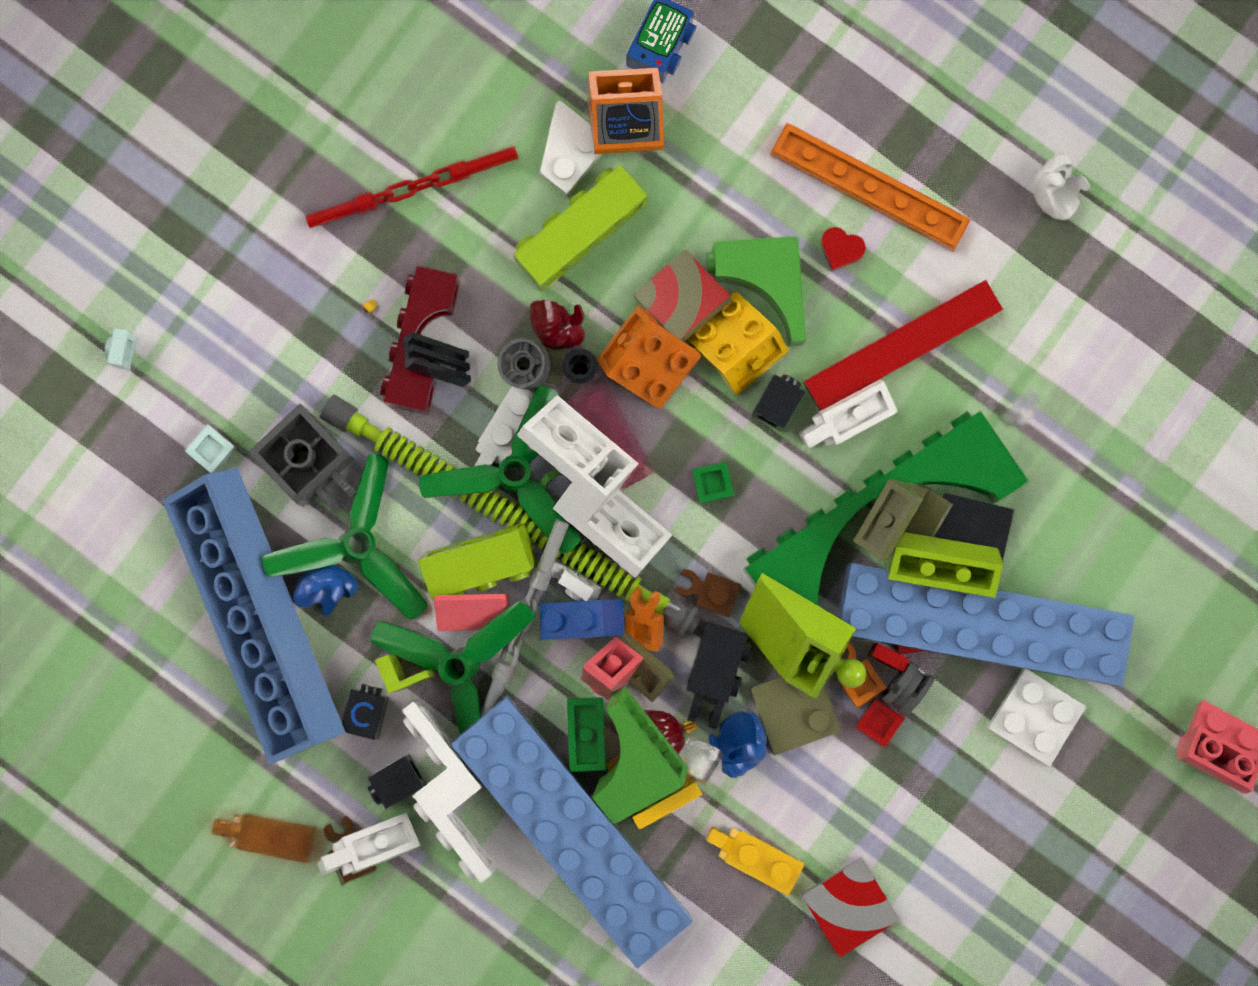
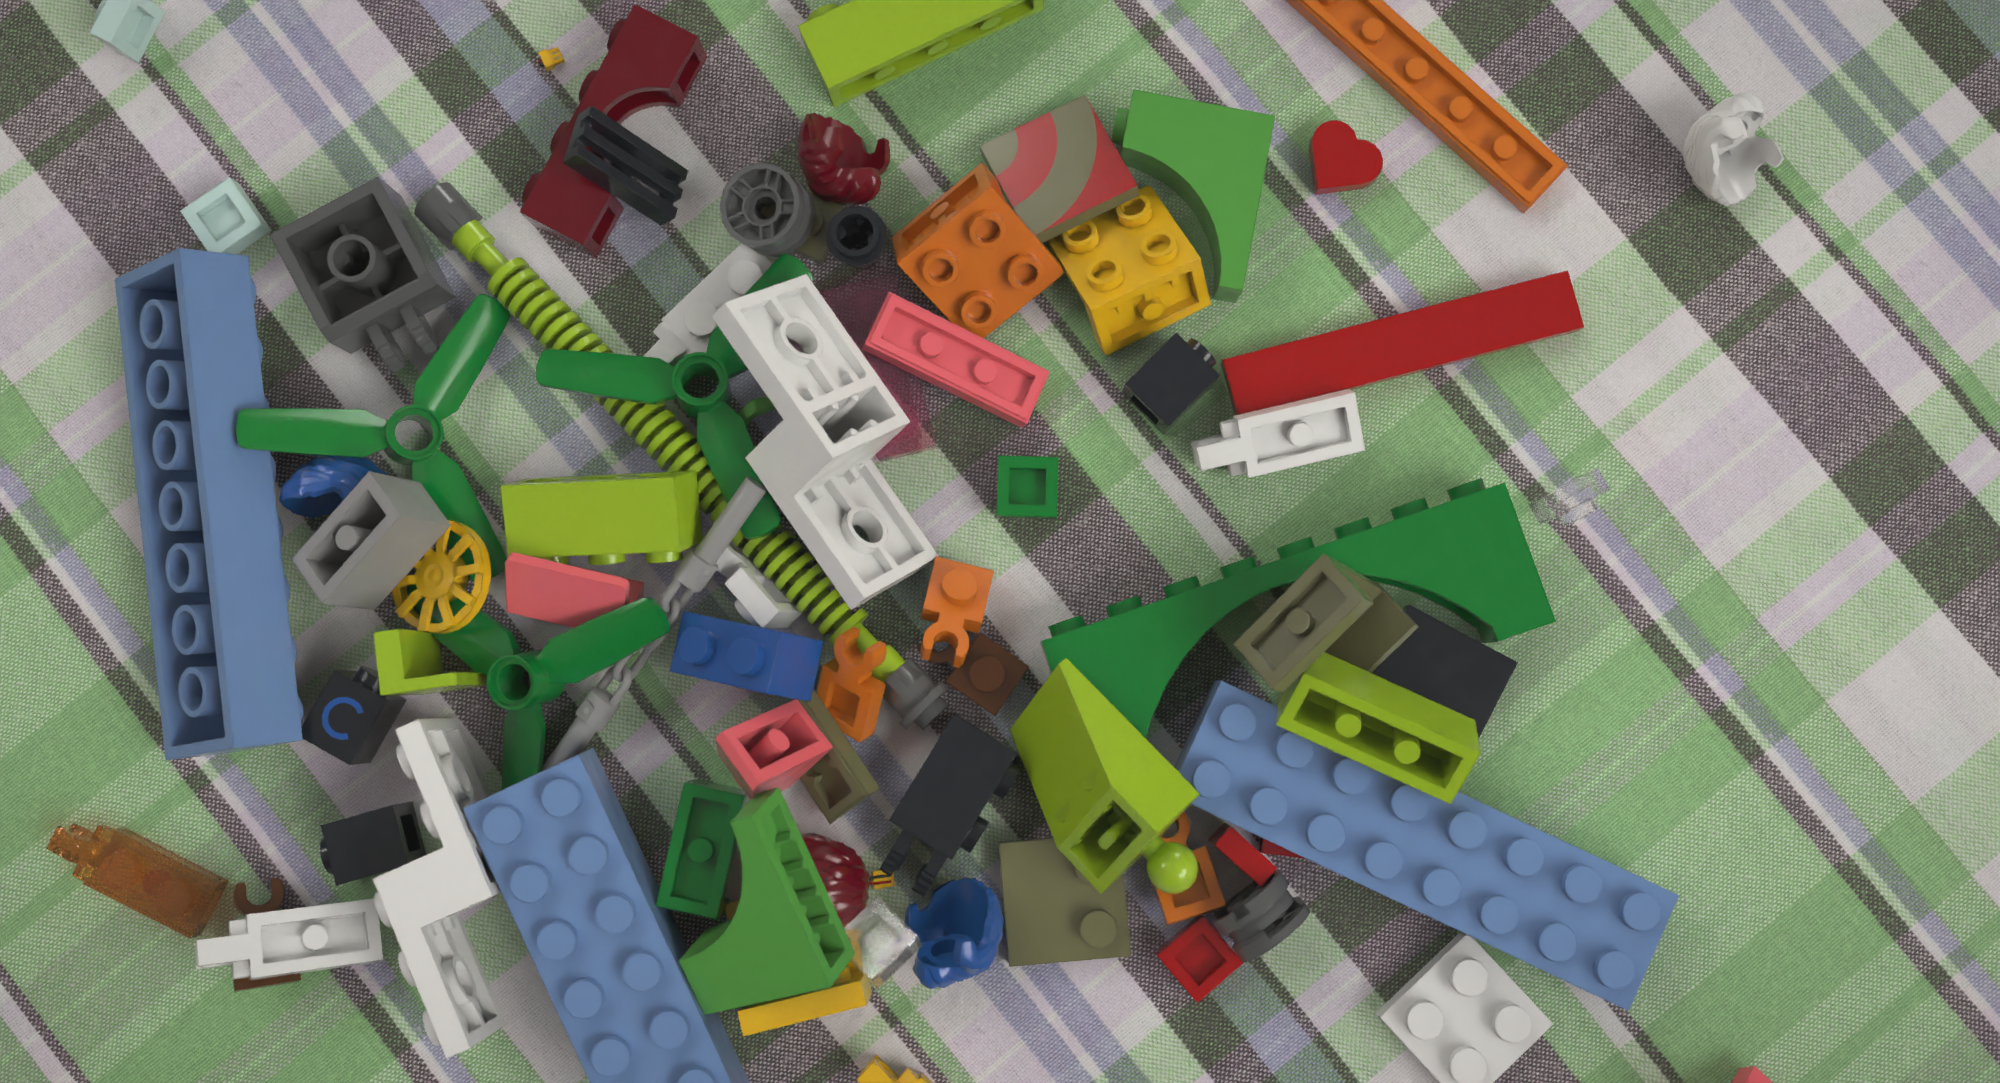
camera: 20 degrees right, 0 degrees up
(354, 610) = (370, 541): none -> light grey brick
(394, 620) = (443, 579): none -> yellow wheel
(653, 421) = (955, 360): none -> coral tile
(690, 558) = (956, 604): none -> orange plate

